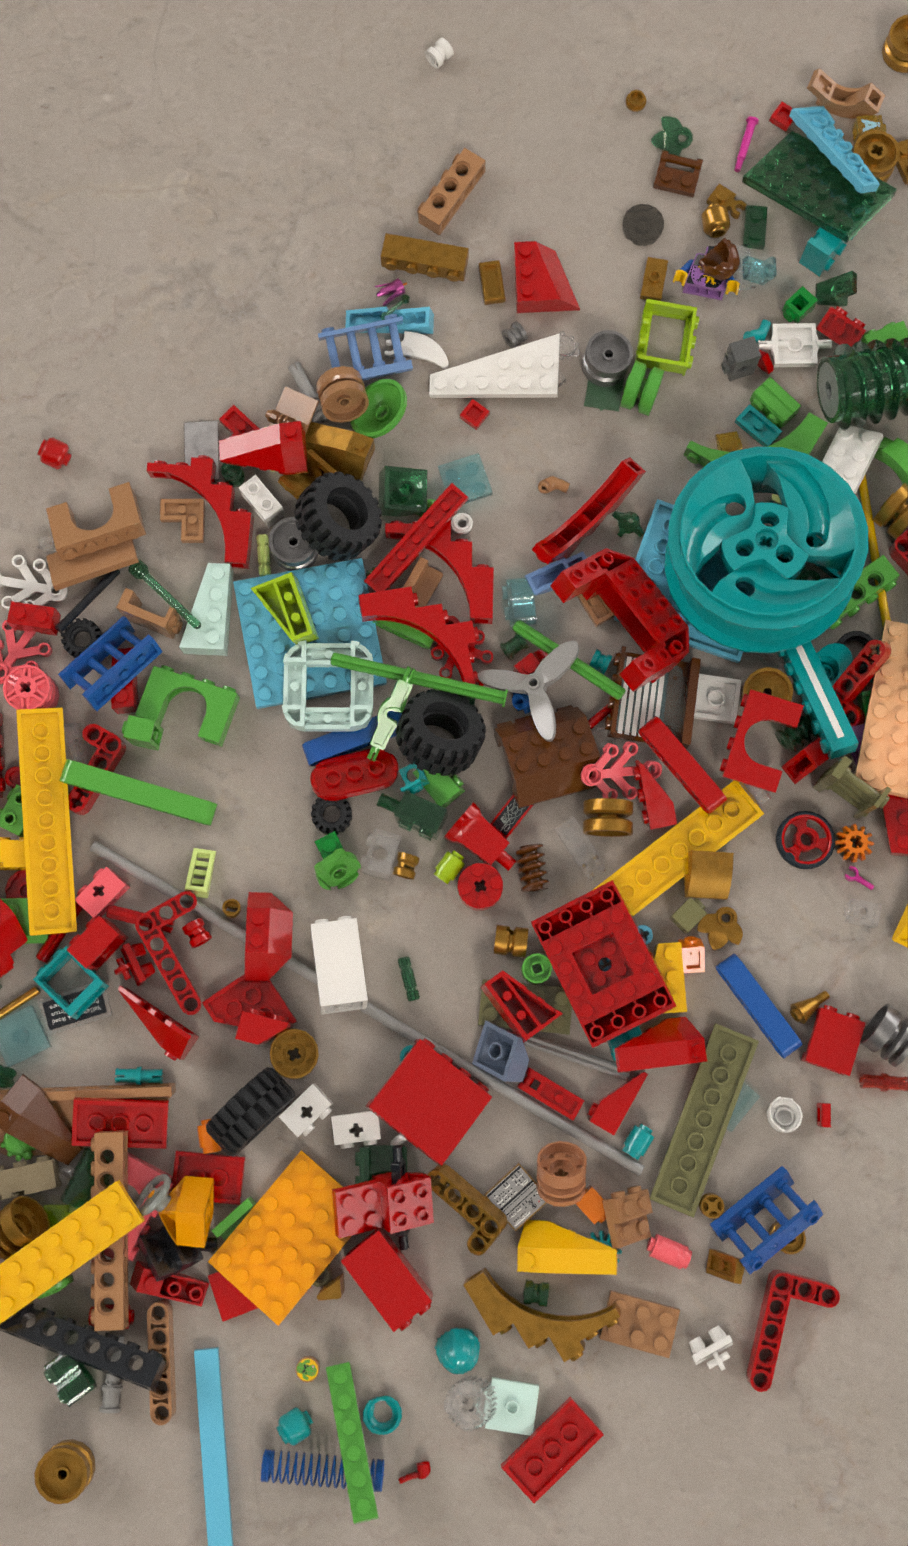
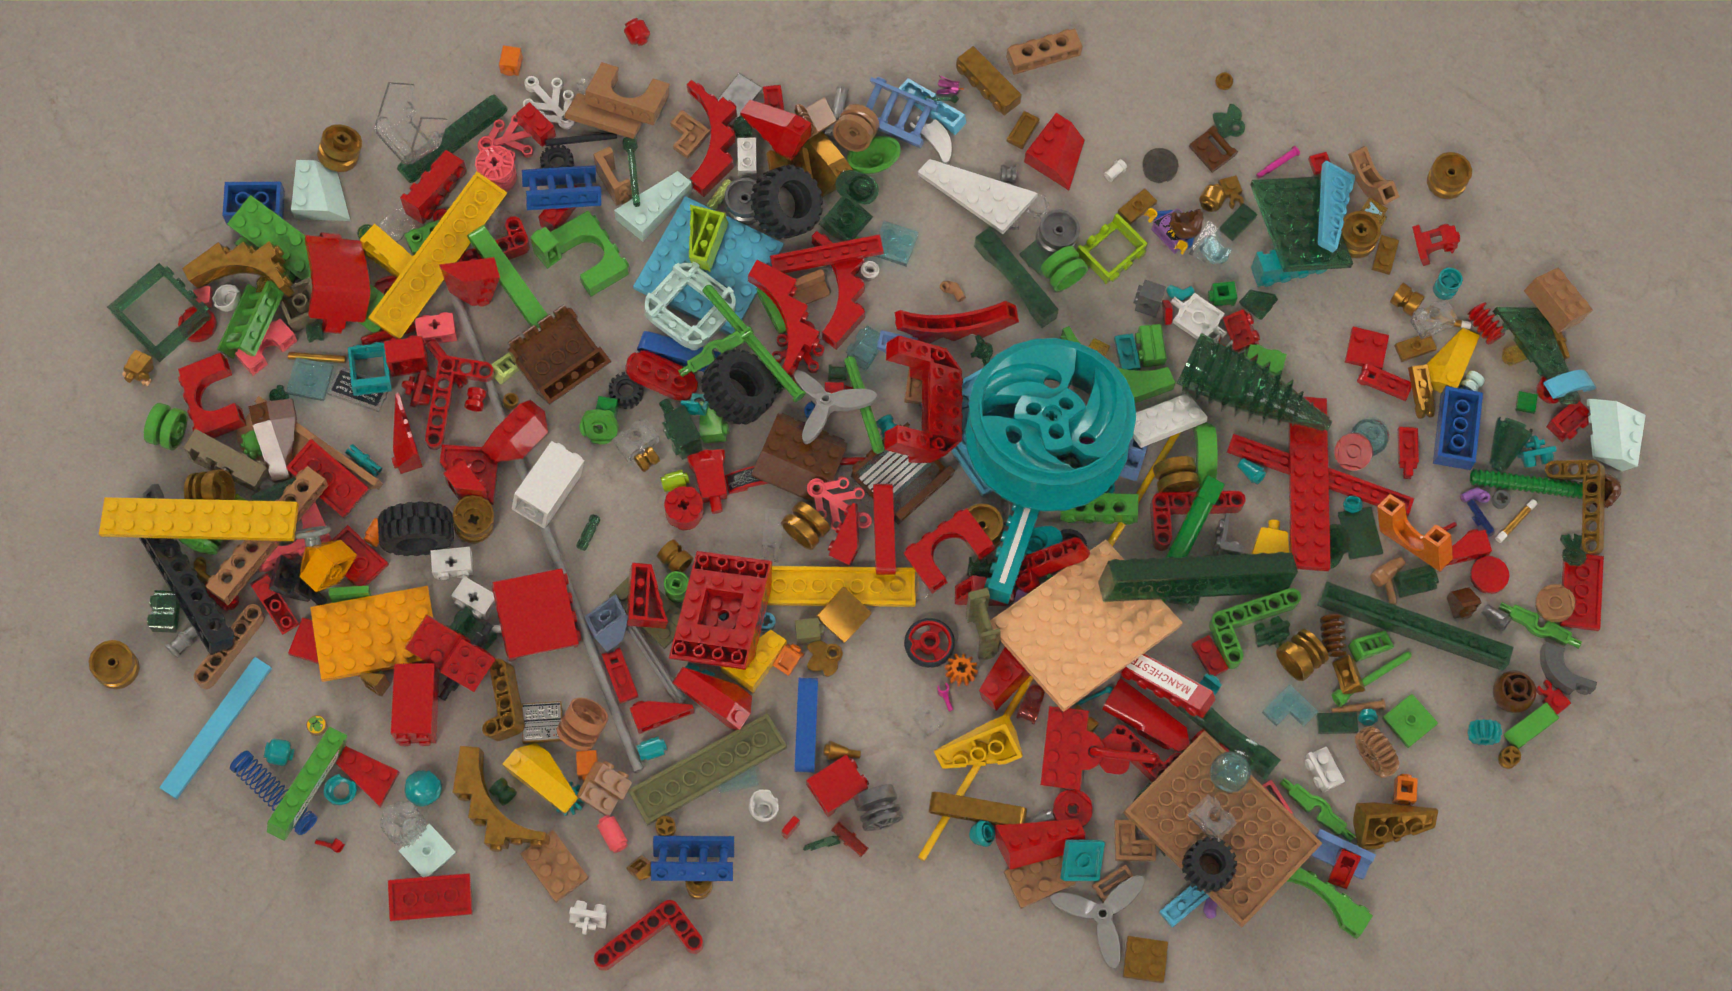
camera: 30 degrees right, 10 degrees down
(70, 1307) = (200, 566): none -> pearl gold arm
(103, 822) = (472, 280): none -> red wedge
(242, 831) = (557, 354): none -> reddish brown slope
(388, 450) = (858, 186): none -> clear green piece
(394, 1376) = (369, 774): none -> red wing
(474, 414) = (937, 205): red plate -> none
(531, 868) = (727, 521): reddish brown piece -> none
(571, 420) = (1033, 296): none -> clear green arch
(608, 253) = (1118, 167): none -> white pin
(717, 699) = (944, 504): white plate -> none
(865, 1099) = (827, 841): none -> clear green piece

